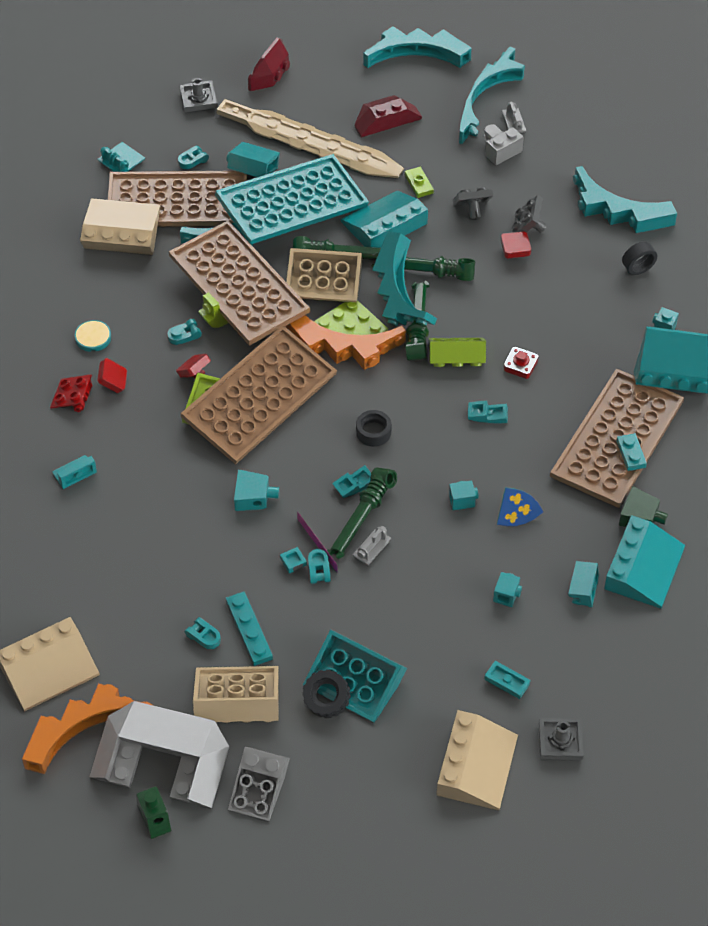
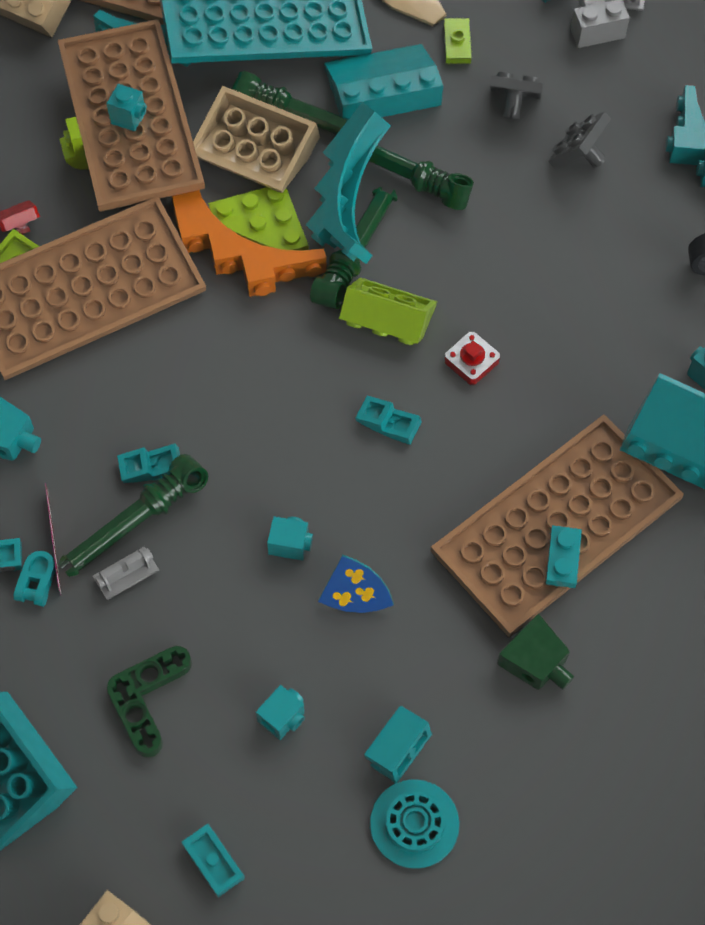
camera: 20 degrees right, 10 degrees up
(178, 335) = (23, 162): teal plate -> none
(240, 276) = (126, 107): none -> teal brick
(373, 439) = (215, 371): black tyre -> none
(413, 609) = (139, 688): none -> dark green beam
(515, 244) = (546, 176): piece -> none
(615, 616) = (414, 823): none -> teal wheel
(644, 563) = (503, 743): teal slope -> none

